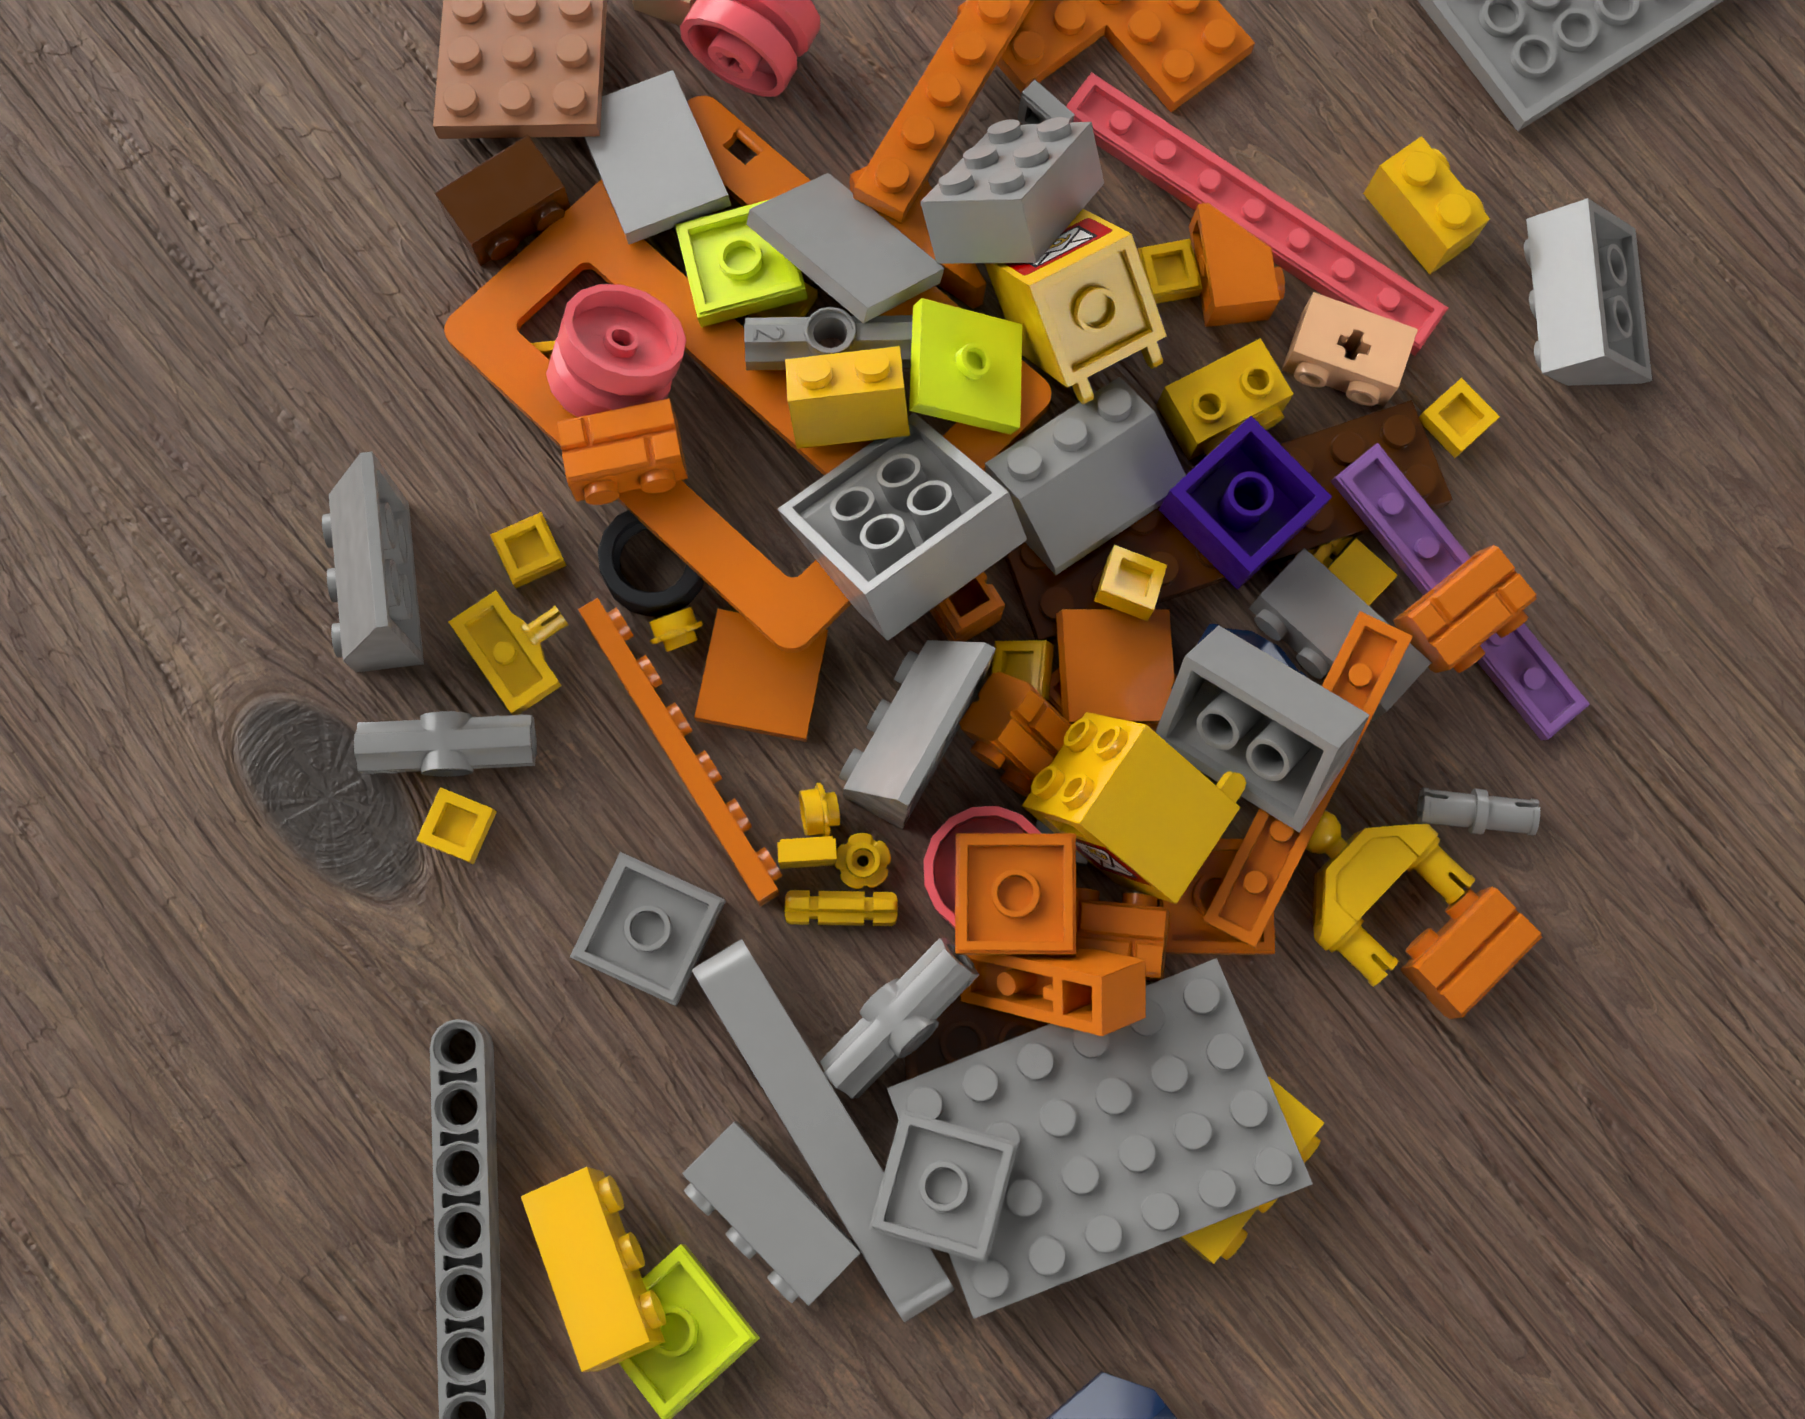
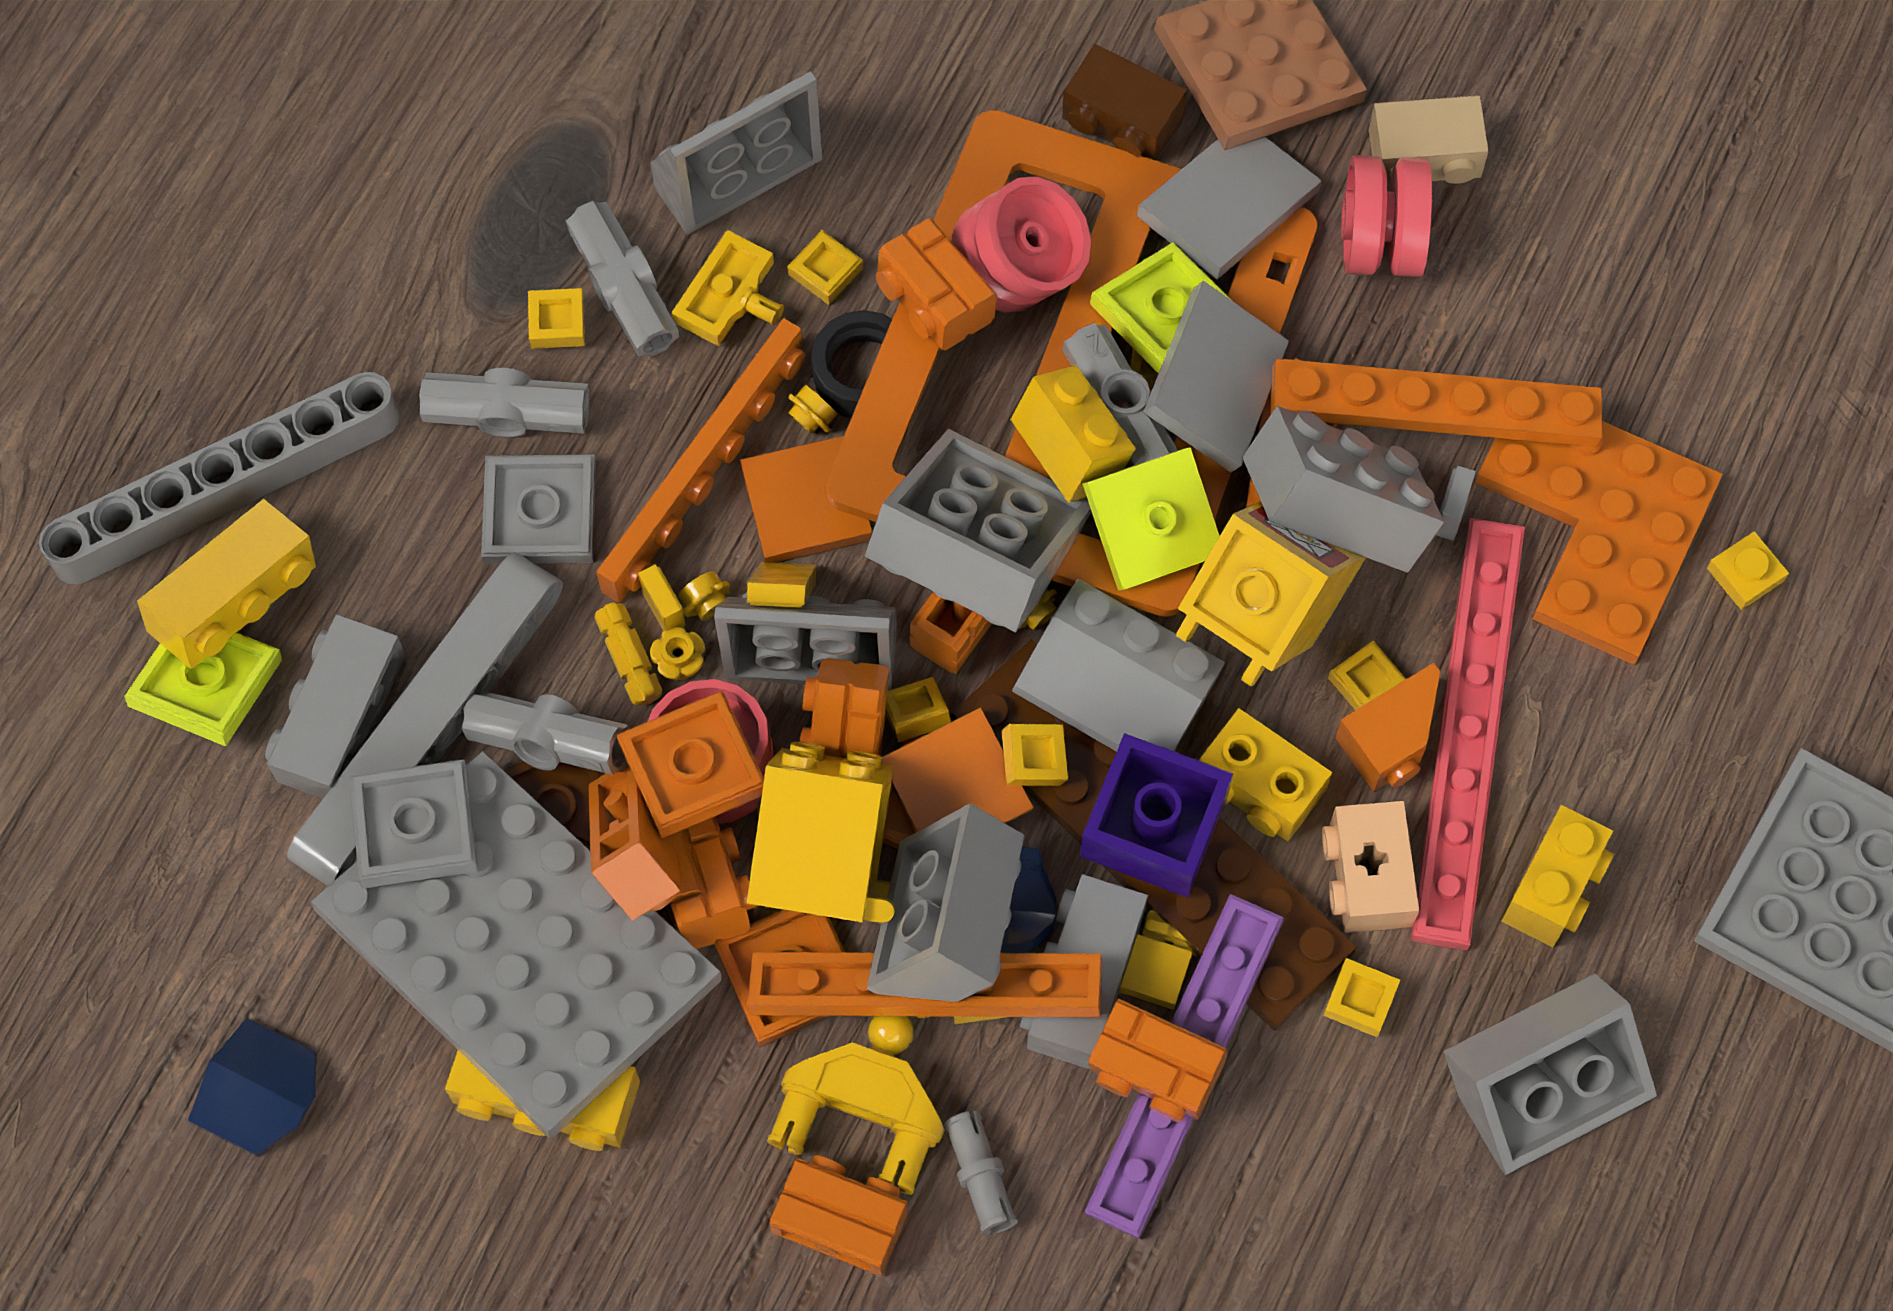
camera: 75 degrees right, 10 degrees down
(523, 914) = (504, 402): none -> light grey piece
(865, 731) = (781, 584): none -> yellow tile

